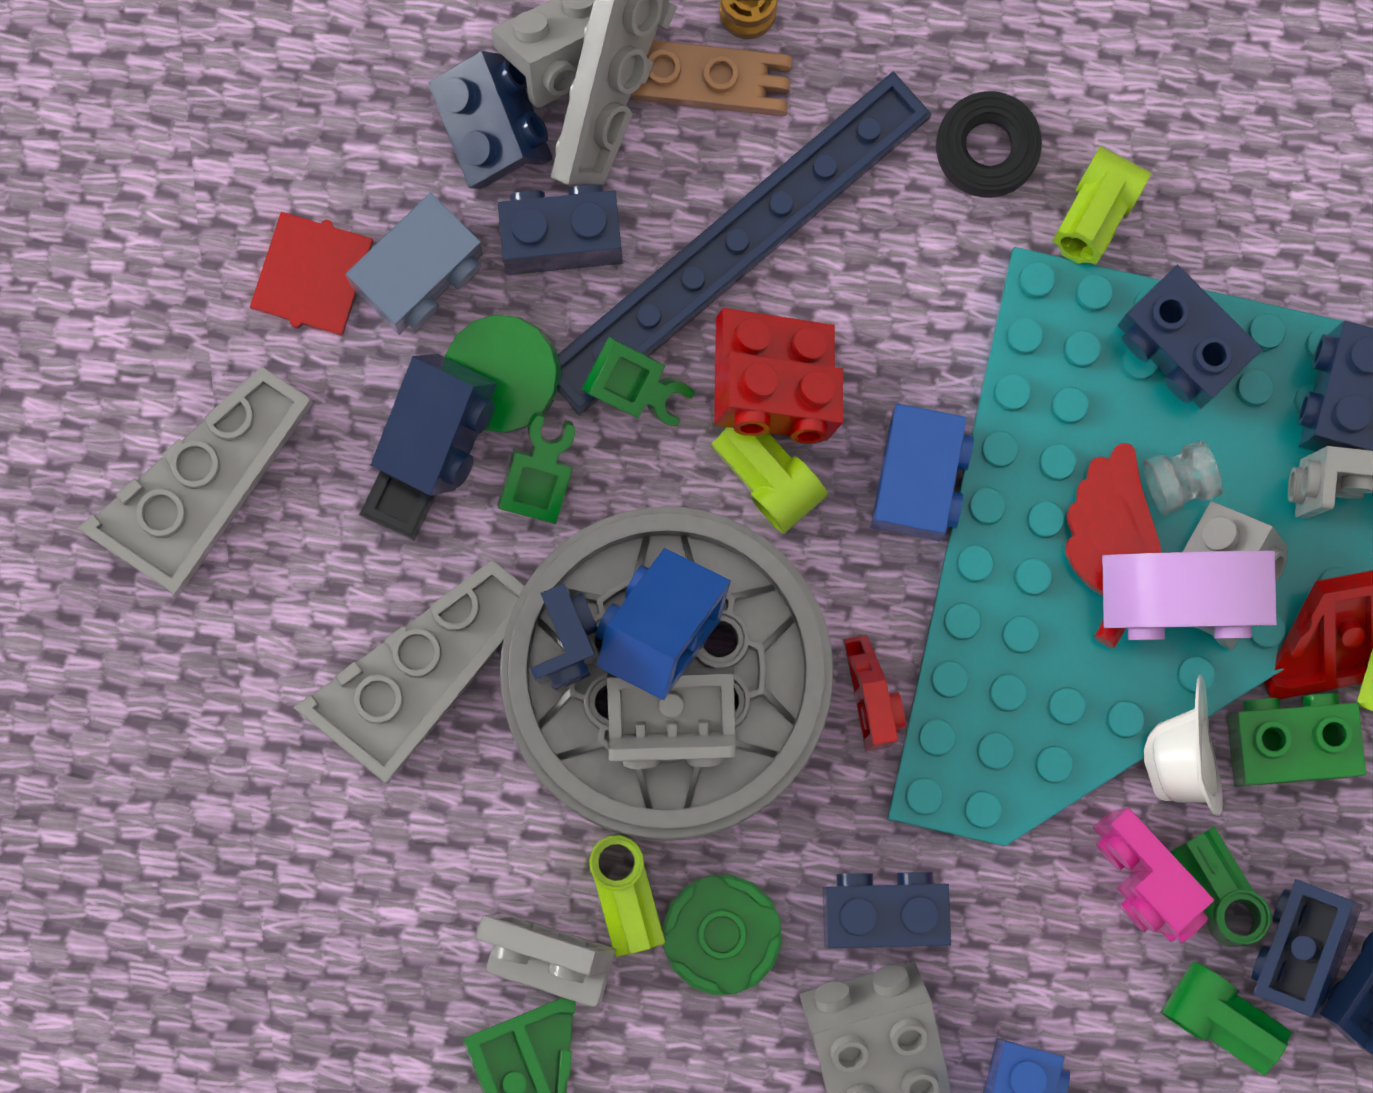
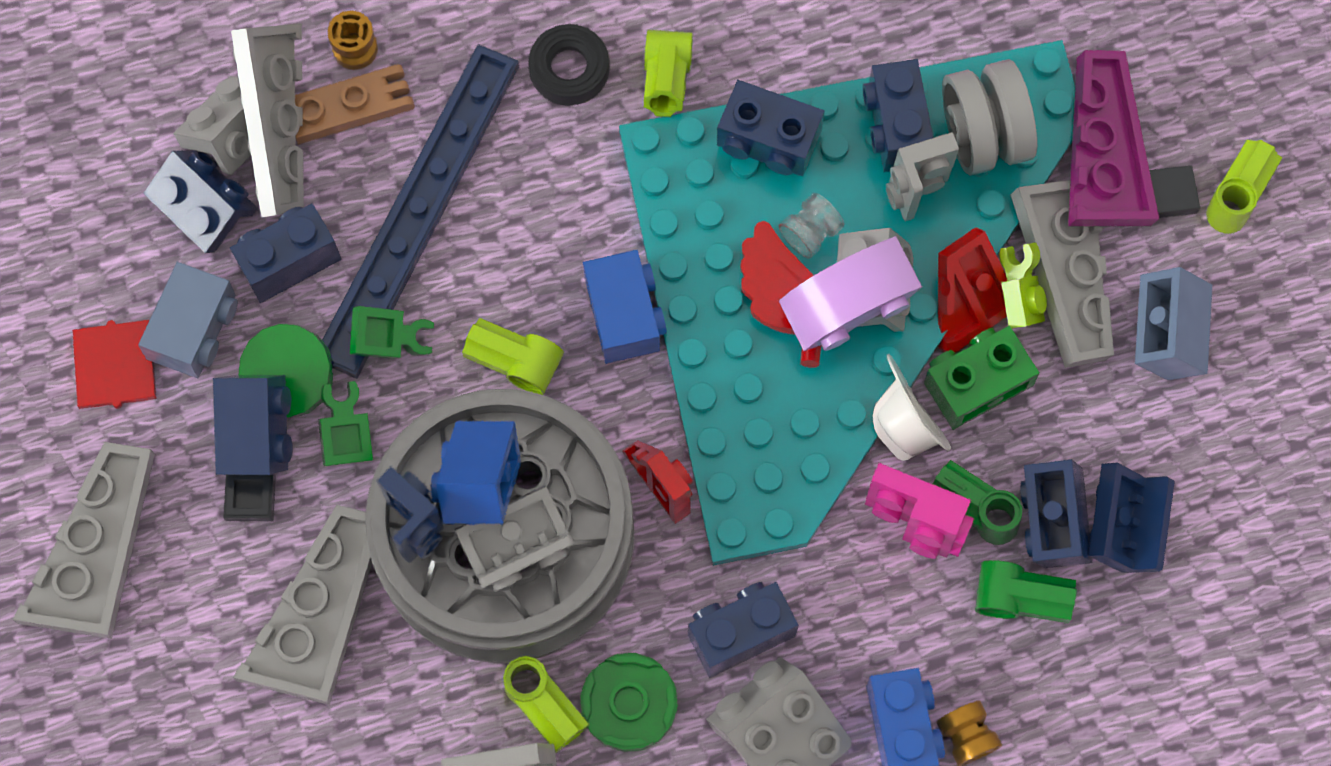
camera: 20 degrees left, 10 degrees down
(776, 376) = (488, 284): red plate -> none

